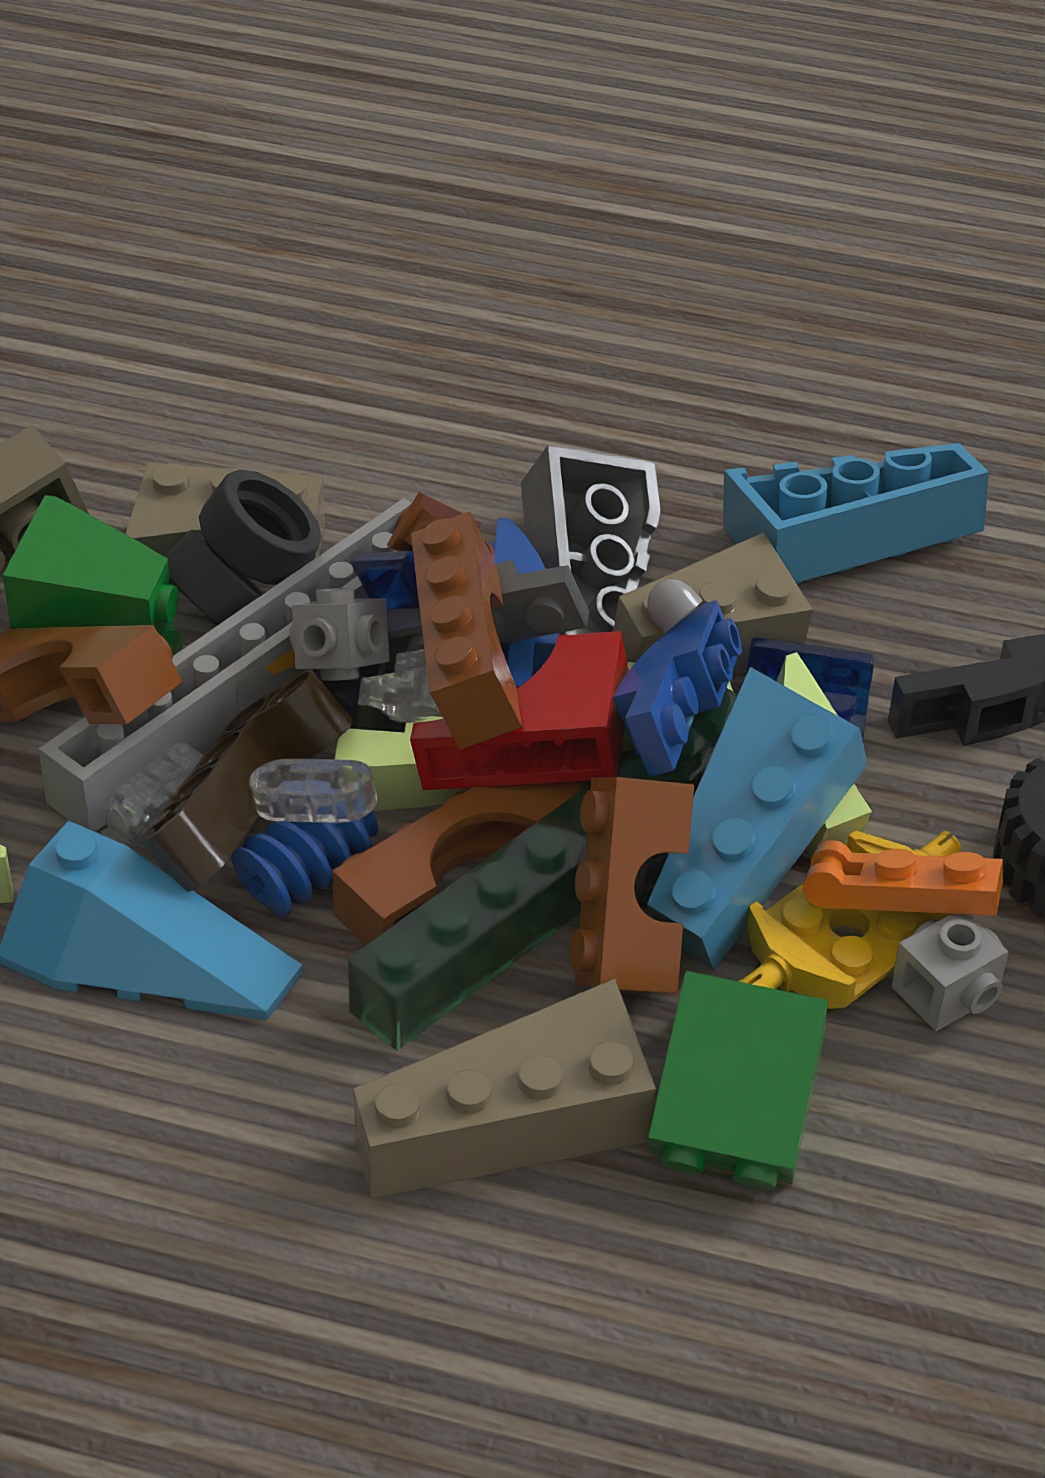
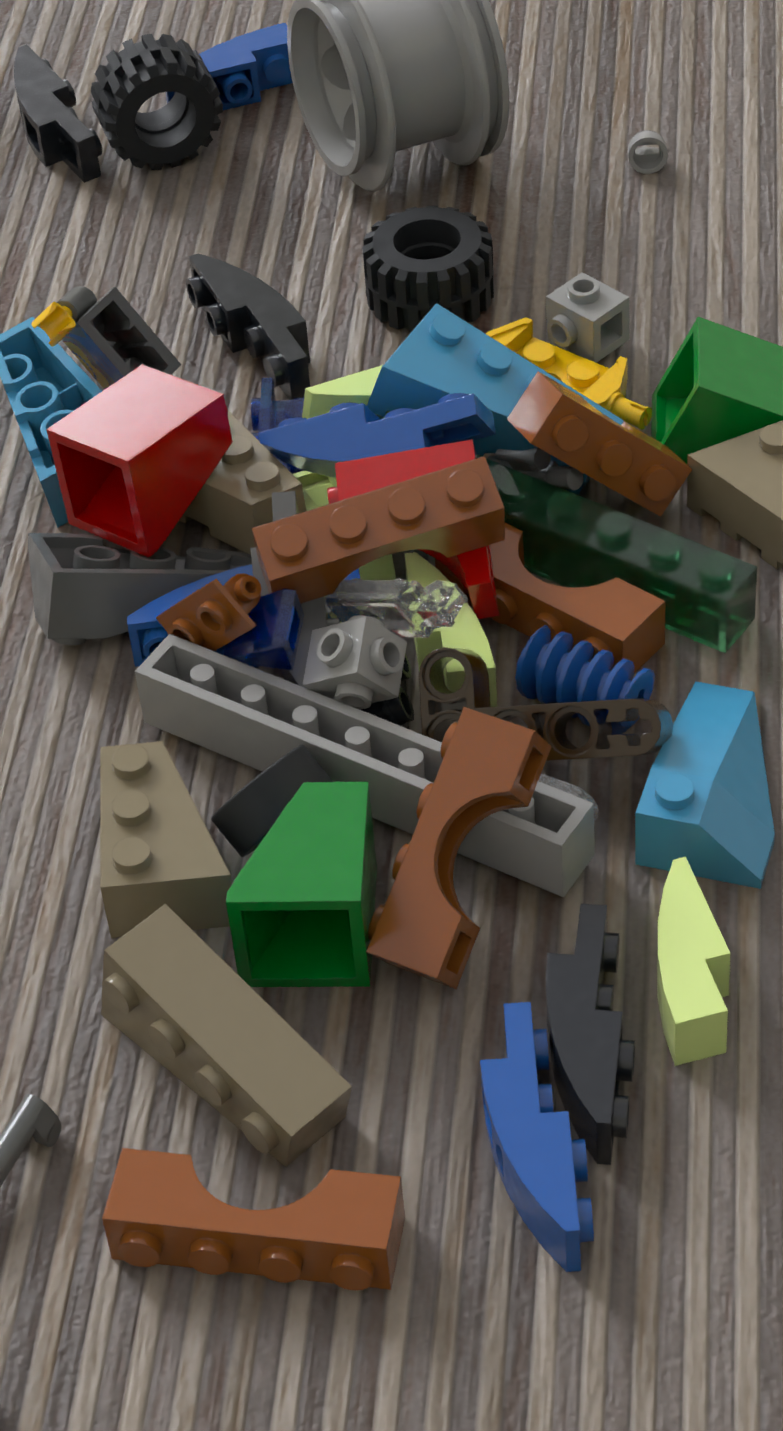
camera: 95 degrees left, 0 degrees up
(259, 527) = (226, 740): black tyre -> none
(313, 790) = (545, 646): clear beam -> none
(671, 602) = (289, 441): light grey hinge -> none
(700, 503) = (138, 456): none -> red slope
(903, 881) = (530, 314): orange plate -> none
(945, 541) = (104, 334): none -> dark grey torso

